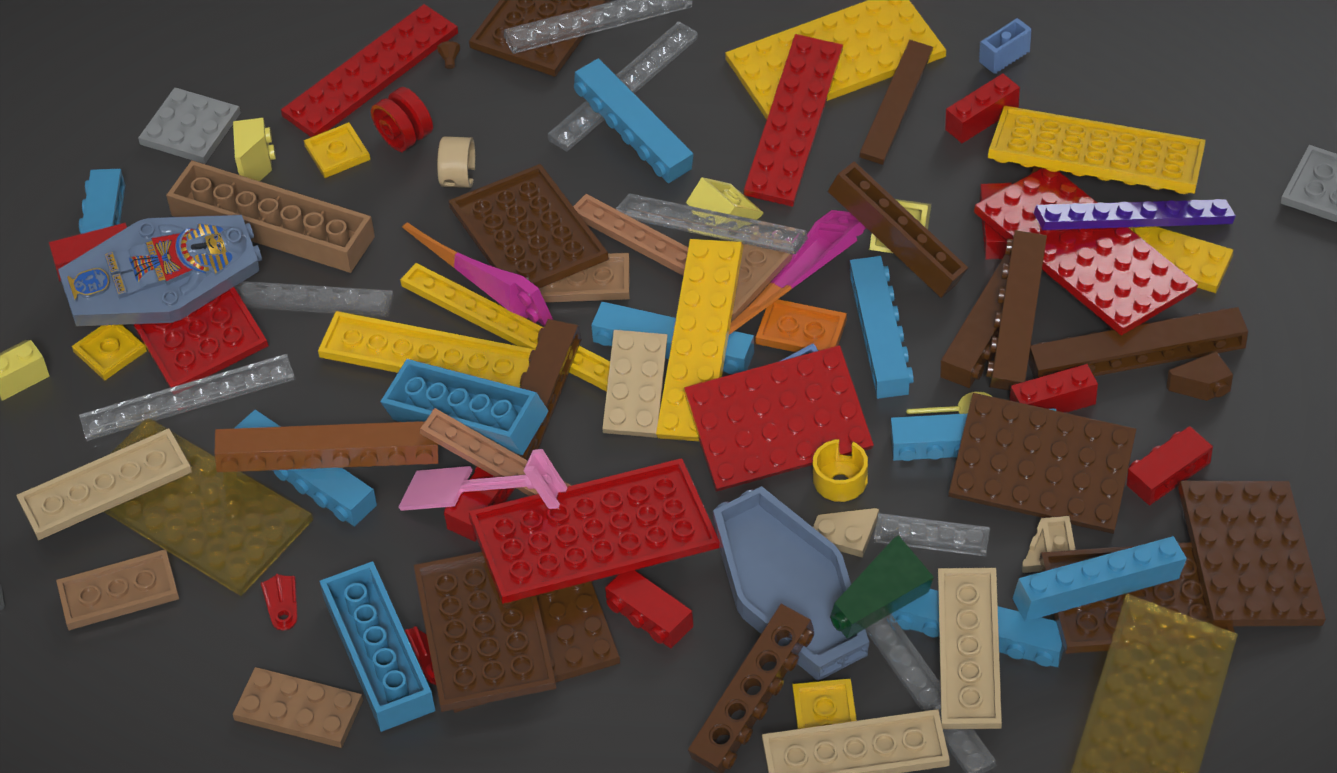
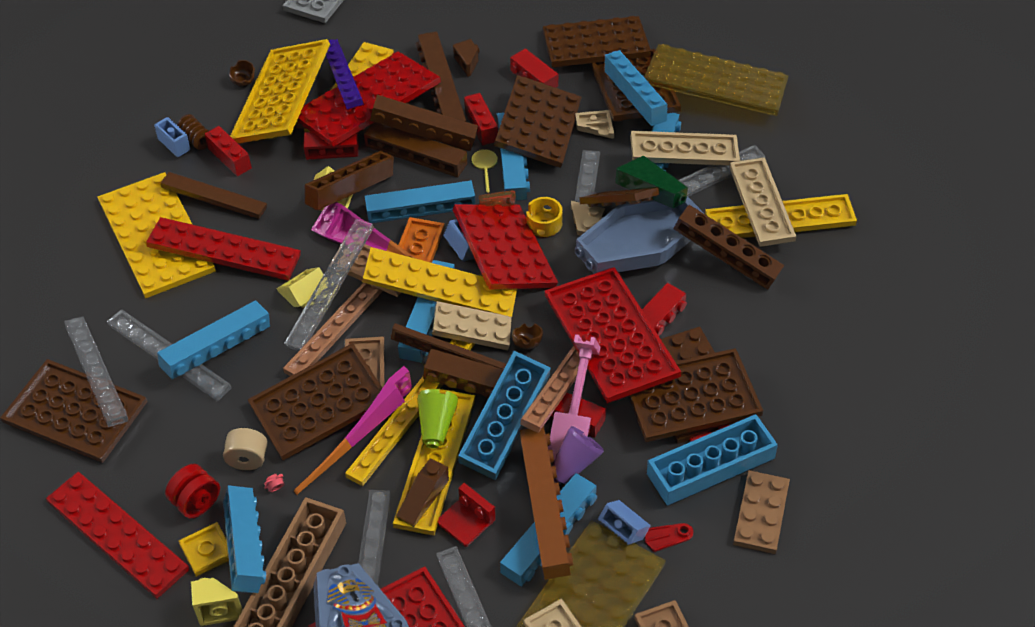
camera: 95 degrees left, 0 degrees up
(295, 542) = (624, 522): none -> medium blue brick
(322, 164) = (243, 540): none -> dark azure brick
(336, 385) = (467, 516): none -> red bracket
(369, 333) = (423, 492): none -> reddish brown slope
(403, 488) = (575, 455): none -> medium lavender cone
(414, 199) = (274, 482): none -> coral plate
(449, 51) = (108, 474): reddish brown rock -> none
(474, 337) = (435, 415): none -> lime cone
(582, 351) = (426, 343): none -> reddish brown tile
(614, 447) = (527, 337): none -> reddish brown hair
(850, 545) = (619, 197): none -> reddish brown plate
(862, 406) = (501, 198): none -> clear orange tile
(1024, 65) = (194, 130): none -> reddish brown piece
(1146, 110) = (242, 73): none -> reddish brown hair

